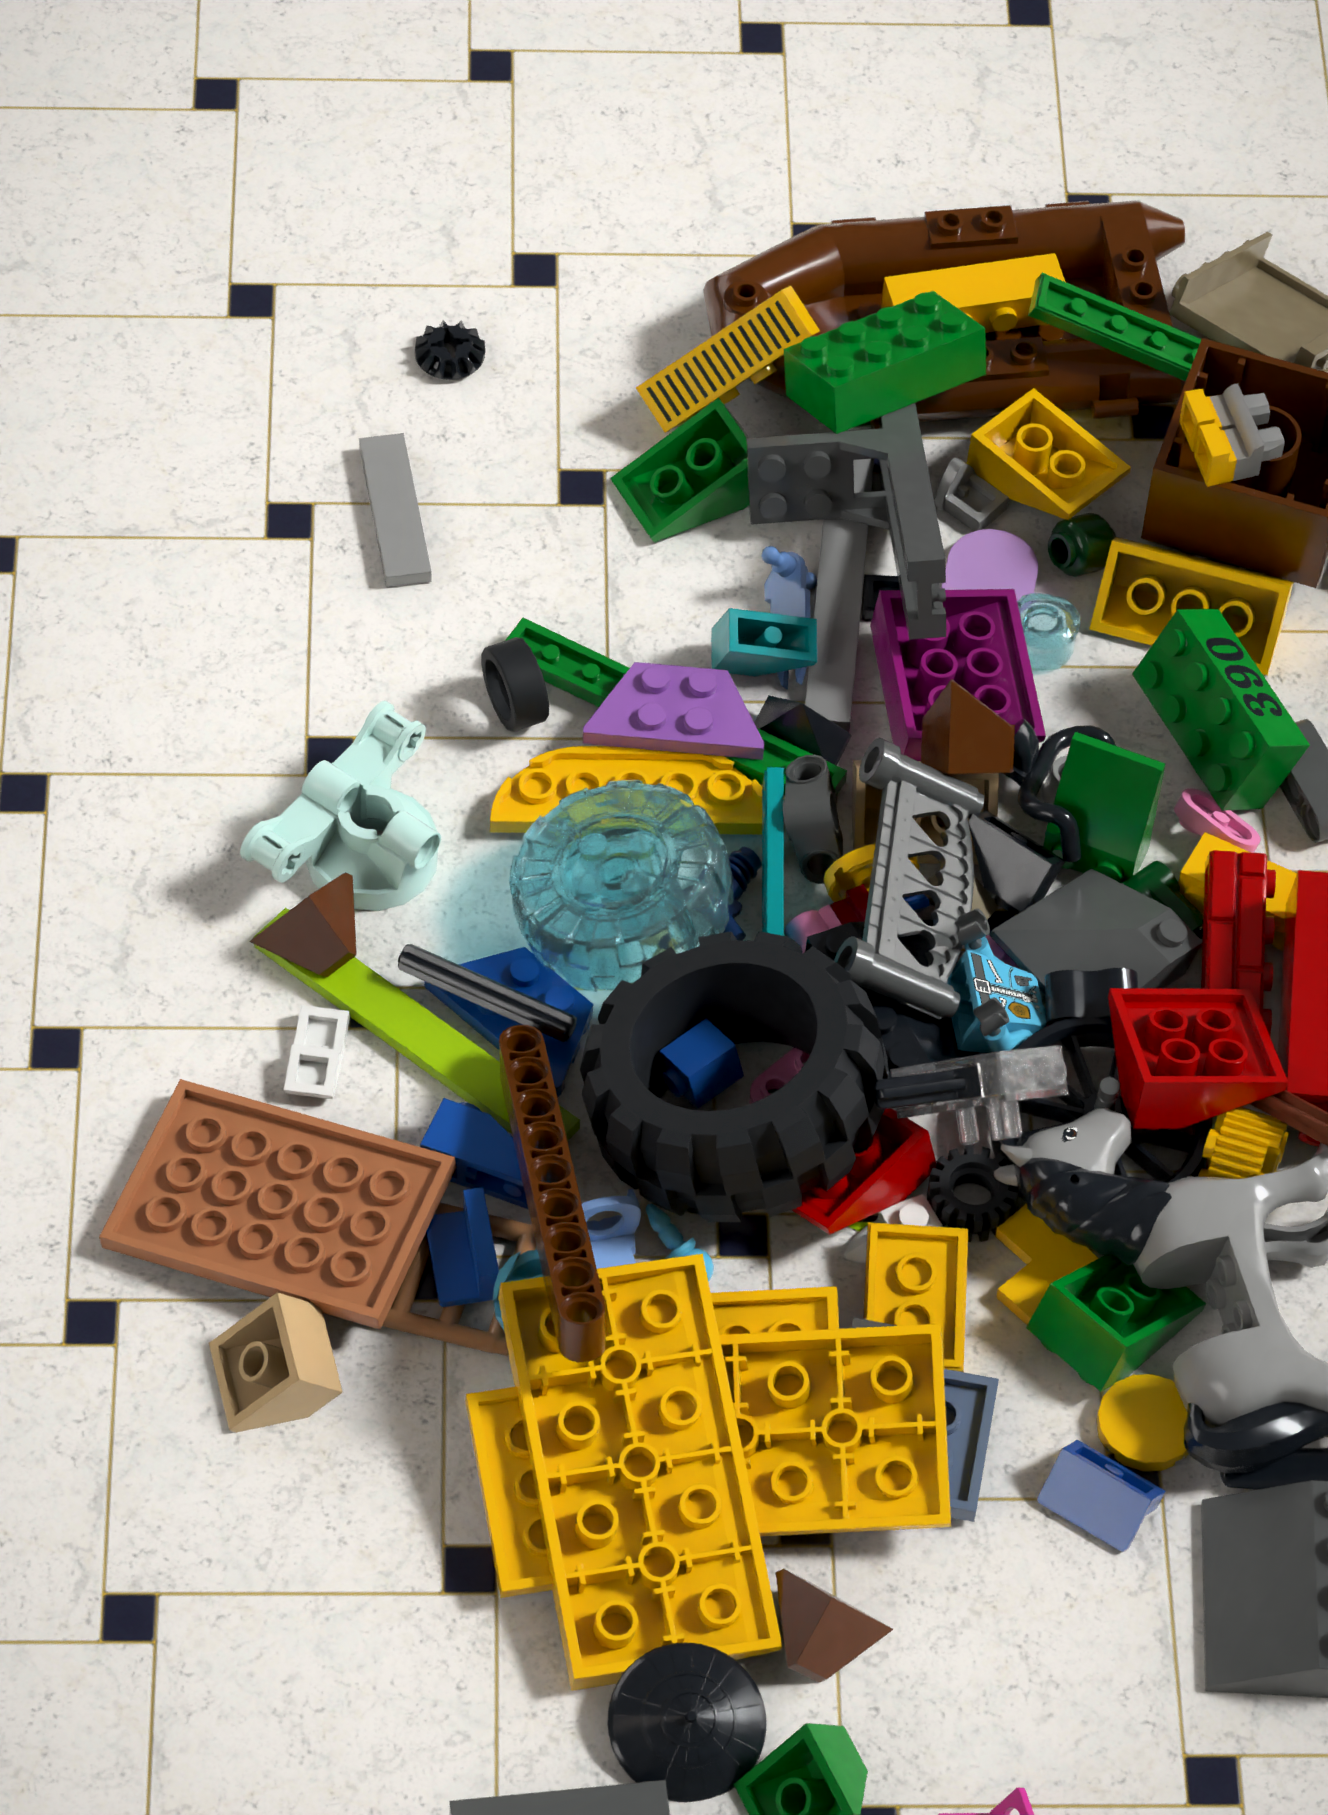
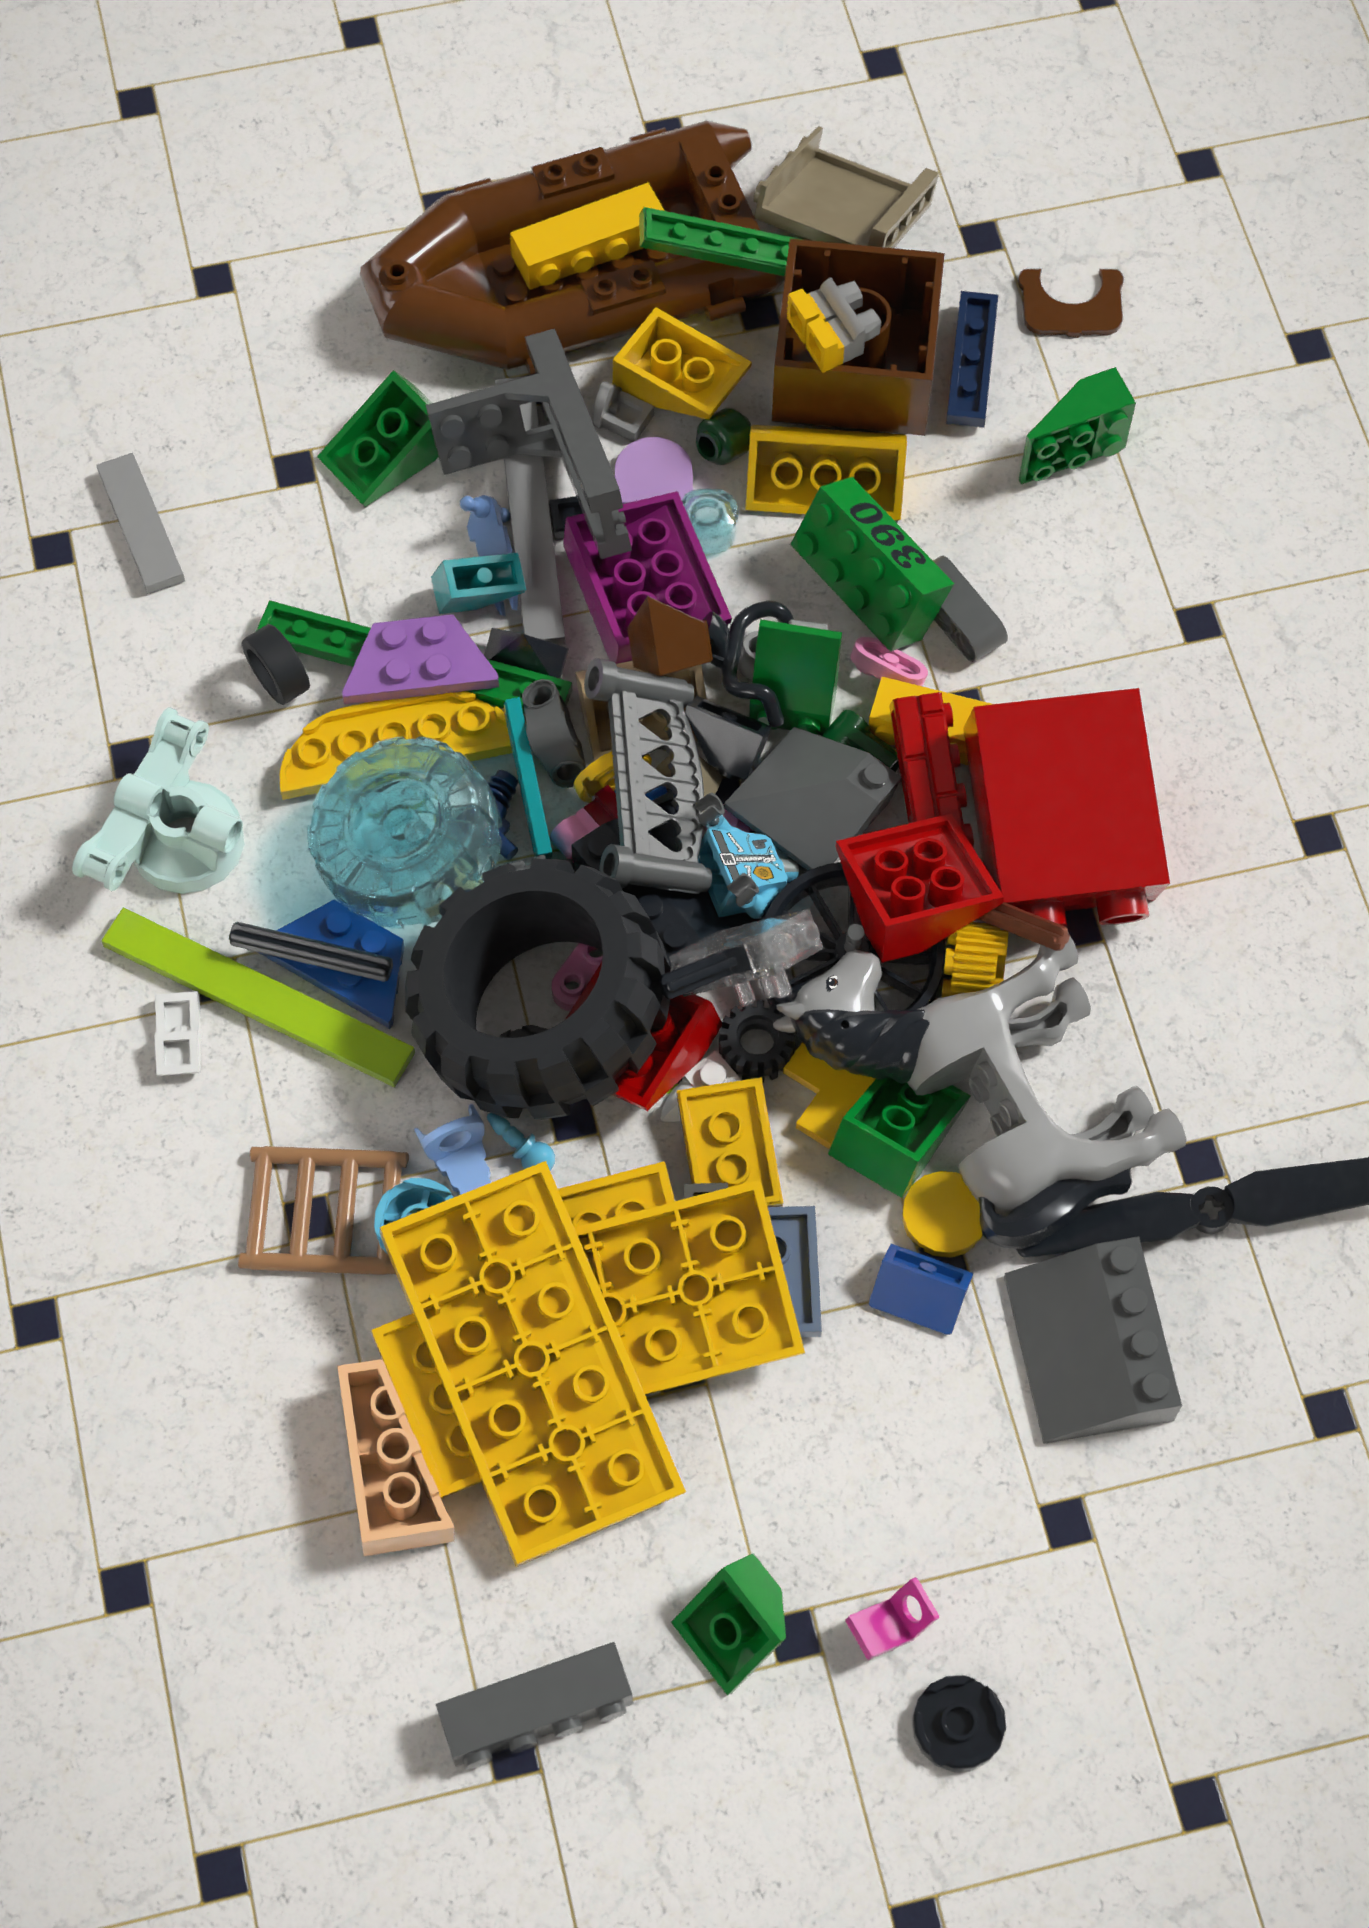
camera: 10 degrees left, 10 degrees up
(275, 1364) = (202, 1330): tan slope -> none
(279, 1203) = (173, 1182): nougat plate -> none
(317, 930) = (154, 925): reddish brown slope -> none
(436, 359) = (146, 379): black gear -> none
(453, 1562) = (391, 1480): none -> light nougat wedge
(463, 1252) = (340, 1193): blue panel -> none
(481, 1150) = (334, 1097): blue slope -> none
(552, 1194) = (407, 1136): reddish brown beam -> none
(687, 1720) = (620, 1577): black hat -> none
(701, 1064) = (505, 978): blue brick -> none
(727, 360) = (395, 334): yellow brick -> none
(822, 1629) = (714, 1463): reddish brown slope -> none
(884, 361) = (527, 312): green brick -> none
(1083, 992) = (814, 847): black axle -> none

